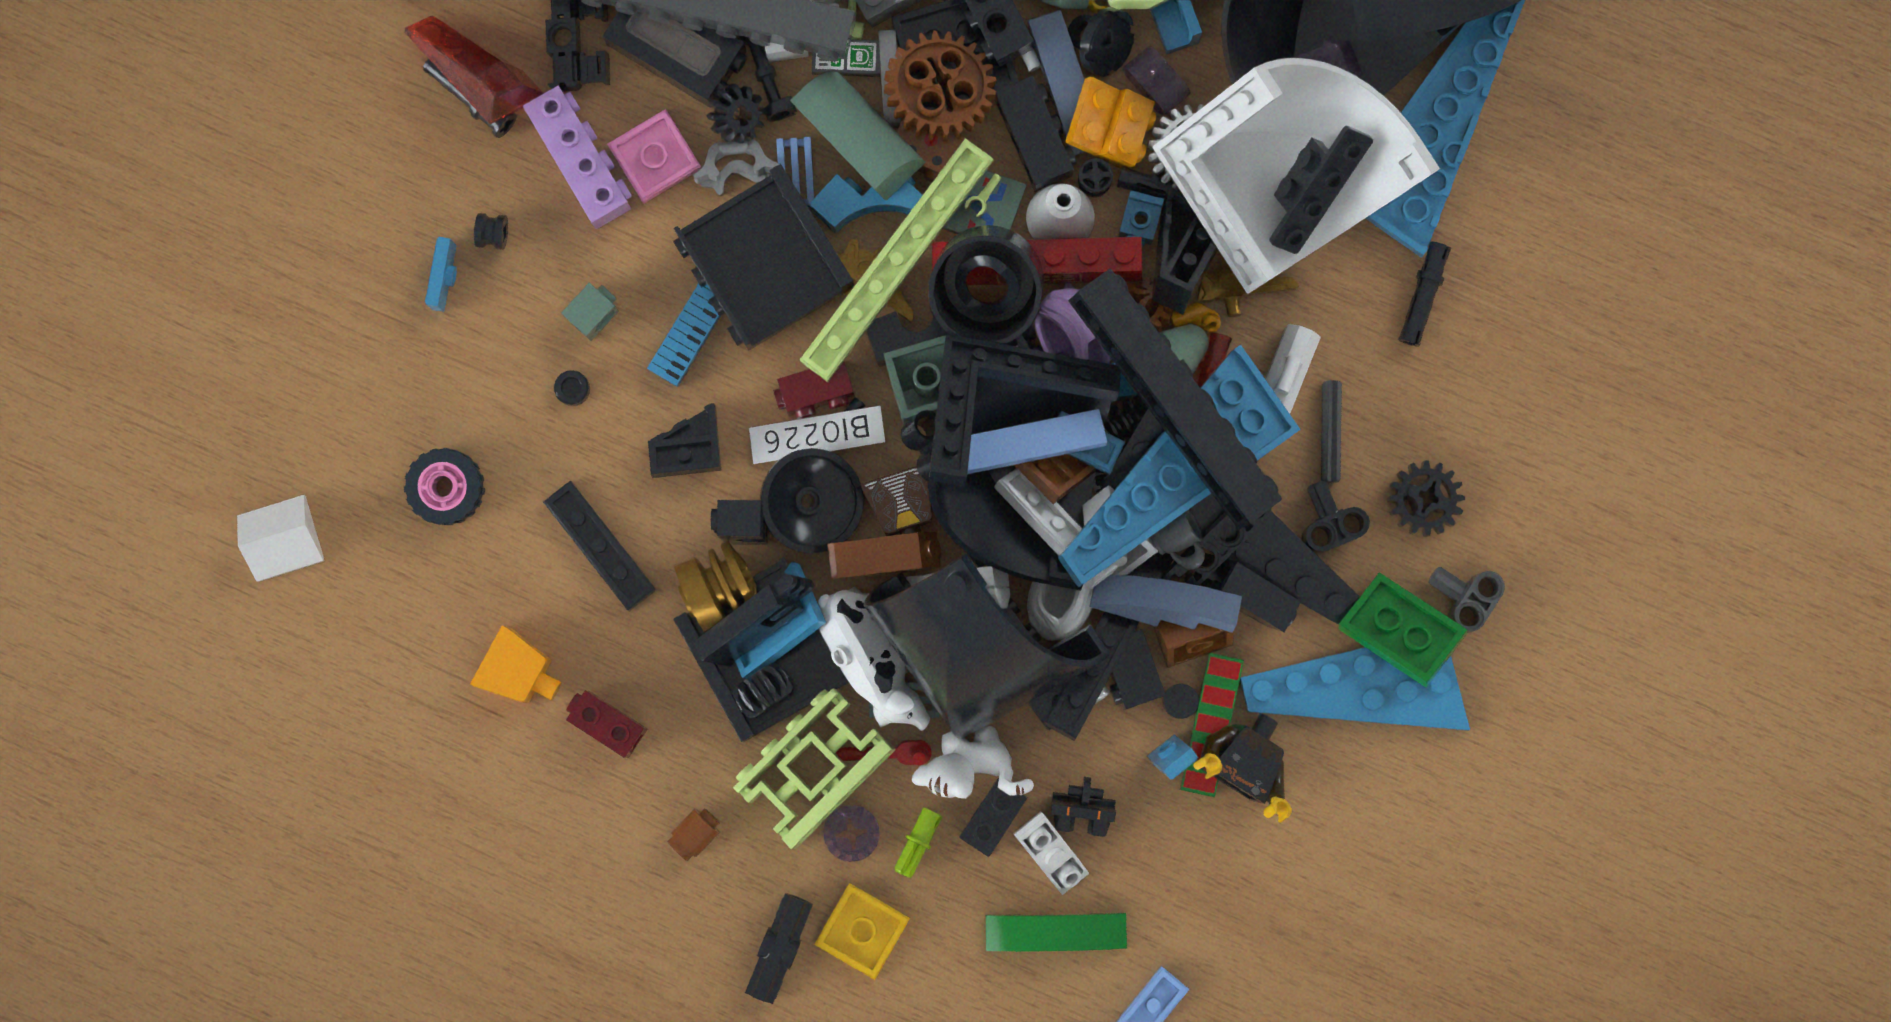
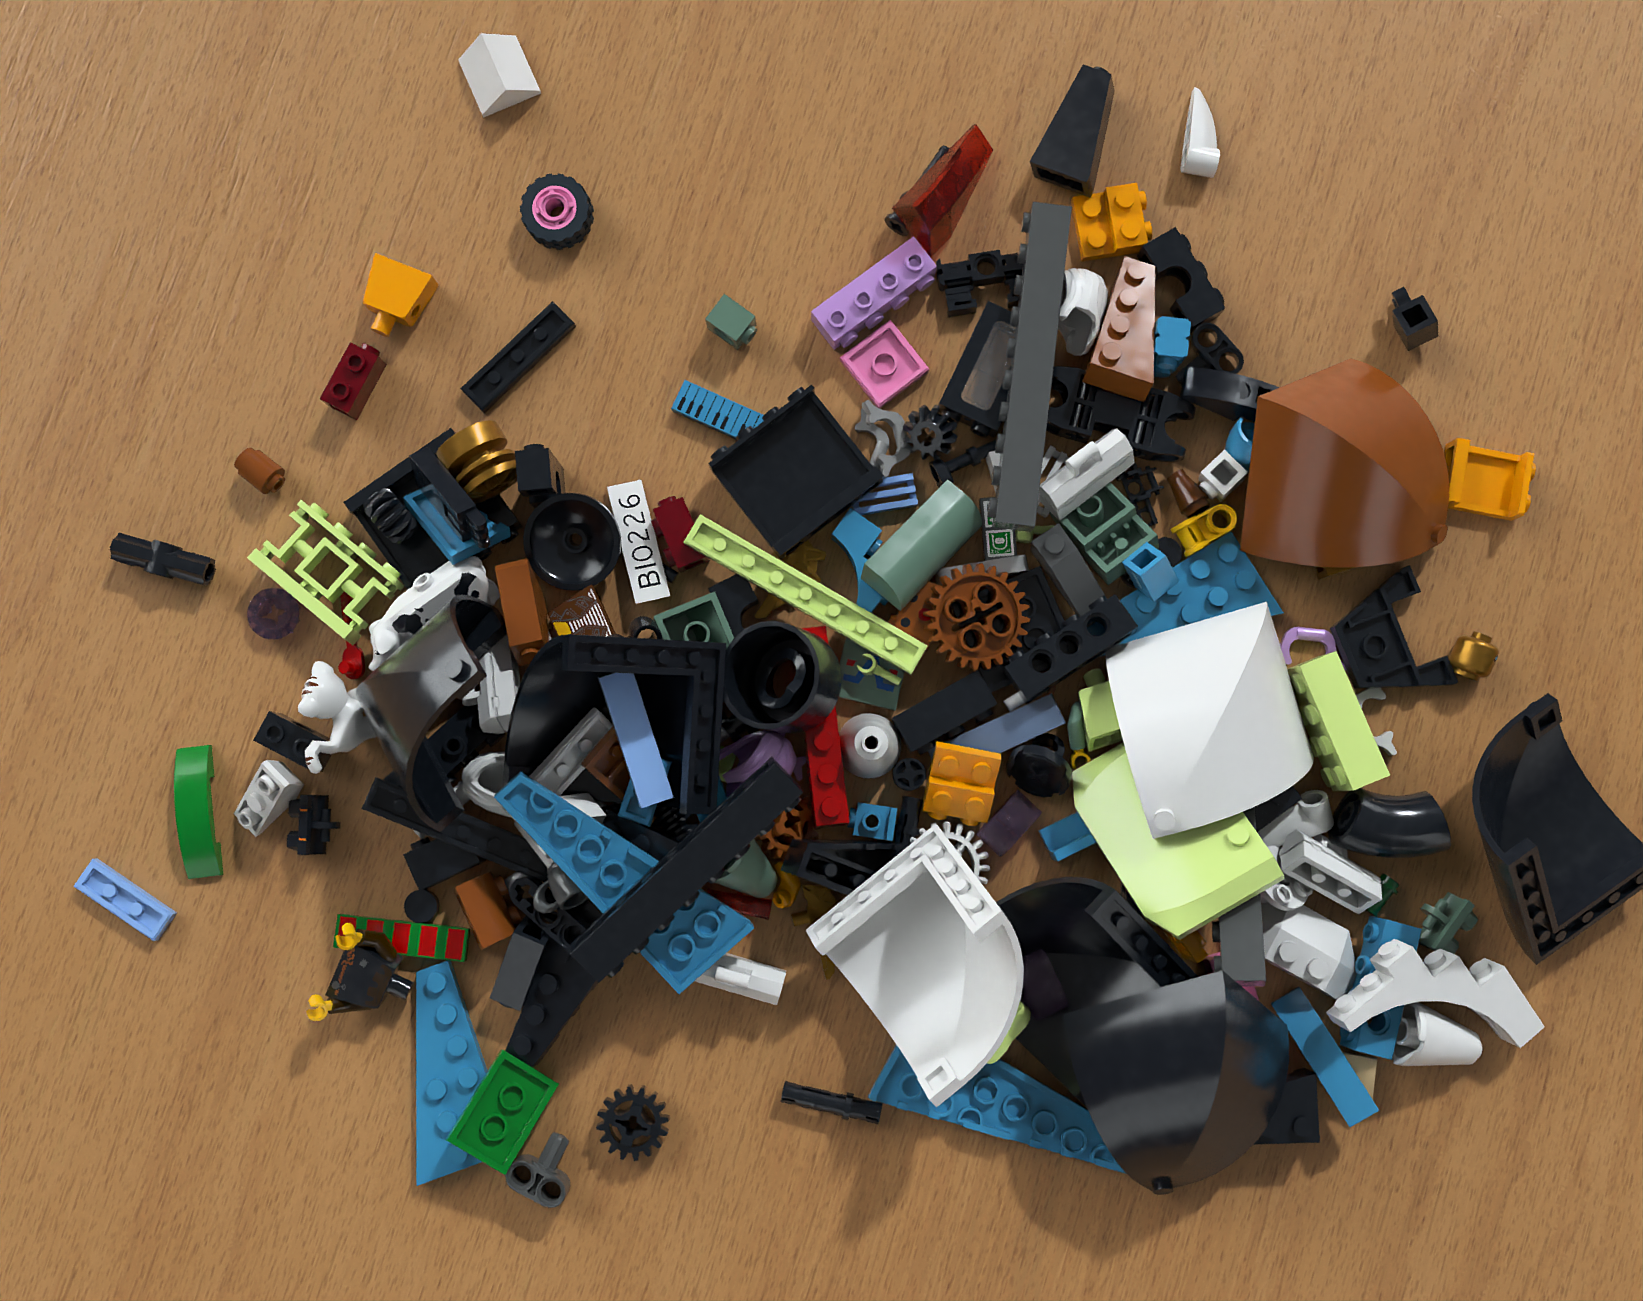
camera: 80 degrees right, 0 degrees up
(442, 274) = (751, 185): dark azure plate -> none
(491, 231) = (796, 224): black wheel -> none
(572, 388) = (660, 315): black tile -> none
(687, 447) = (615, 425): black wing -> none
(862, 931) = (186, 633): yellow tile -> none
(917, 842) = (269, 675): lime axle -> none
(1167, 600) = (500, 883): sand blue slope -> none
(1172, 757) = (361, 903): dark azure plate -> none
(1315, 184) = (914, 984): black bracket -> none
(1331, 431) = (690, 1024): dark grey axle -> none
(1332, 520) = (603, 1033): black beam -> none

